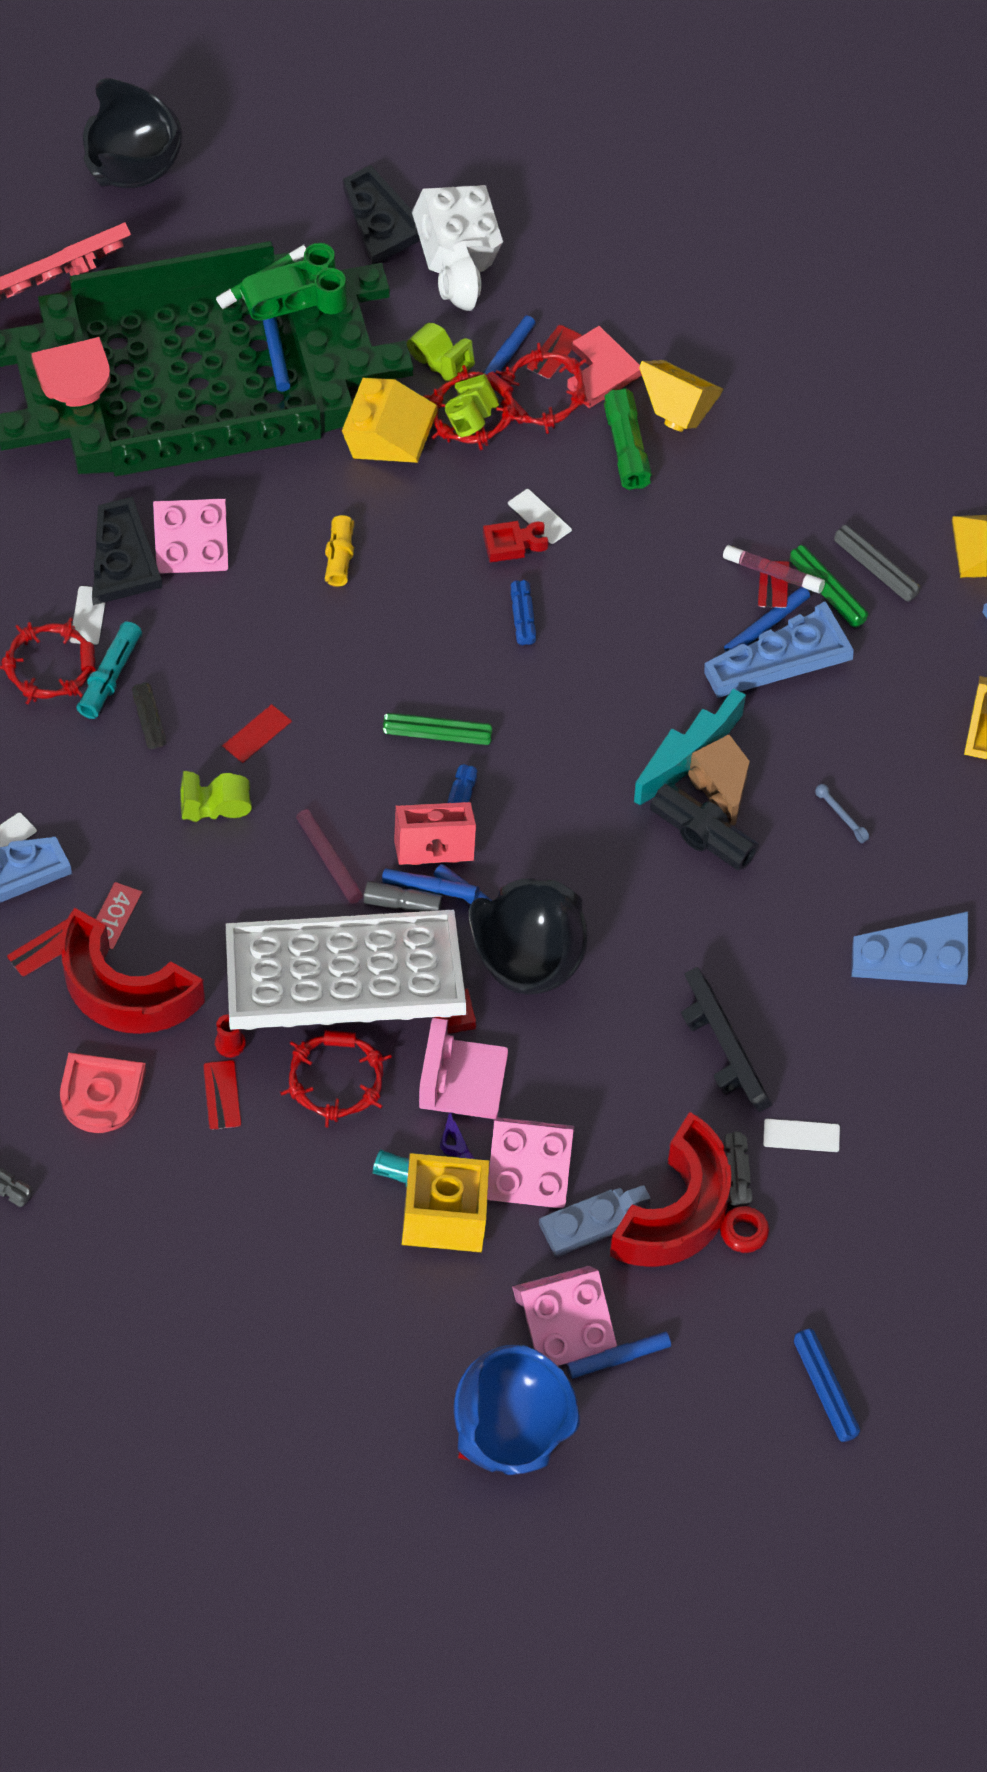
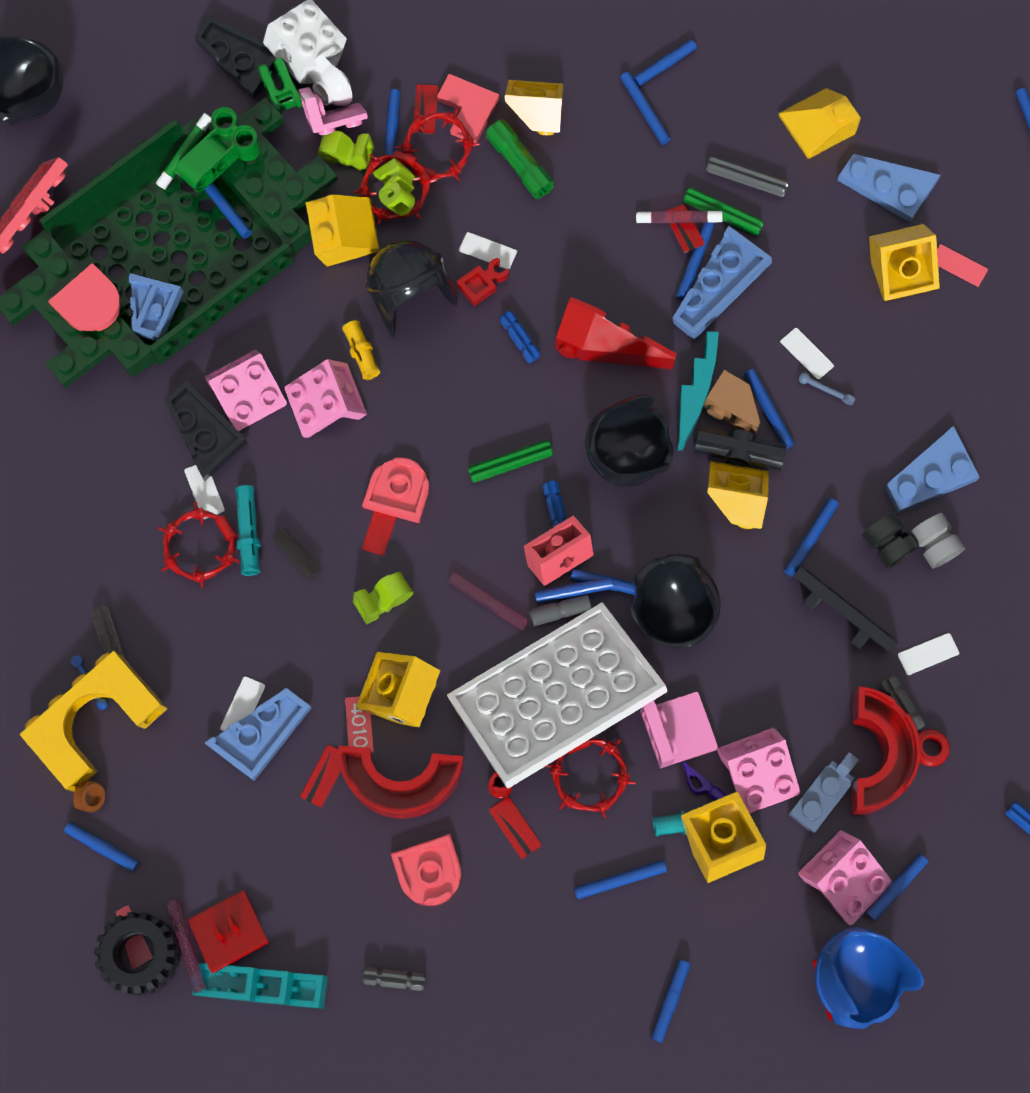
camera: 25 degrees left, 15 degrees up
(140, 409) = (152, 306): none -> medium blue wing
(178, 894) = (398, 688): none -> yellow slope
(273, 572) = (324, 397): none -> bright pink bracket
(288, 1348) = (670, 1001): none -> blue piece
(297, 704) = (398, 489): none -> coral tile
(306, 1198) = (620, 879): none -> blue bar
(404, 275) = (288, 87): none -> green piece
(425, 292) = (325, 122): none -> bright pink bracket
(426, 476) = (403, 271): none -> black piece
(576, 754) = (629, 442): none -> black piece
(604, 647) = (591, 337): none -> red wedge
(674, 870) = (739, 493): none -> yellow slope
(740, 950) = (811, 537): none -> blue bar
(763, 804) = (769, 408): none -> blue bar
(800, 449) = (645, 108): none -> blue bar
(821, 992) = (890, 540): none -> pearl dark grey wheel
(842, 770) = (807, 353): none -> white sticker
(850, 414) = (665, 62): none -> blue piece
(877, 1015) = (936, 539): none -> light grey wheel

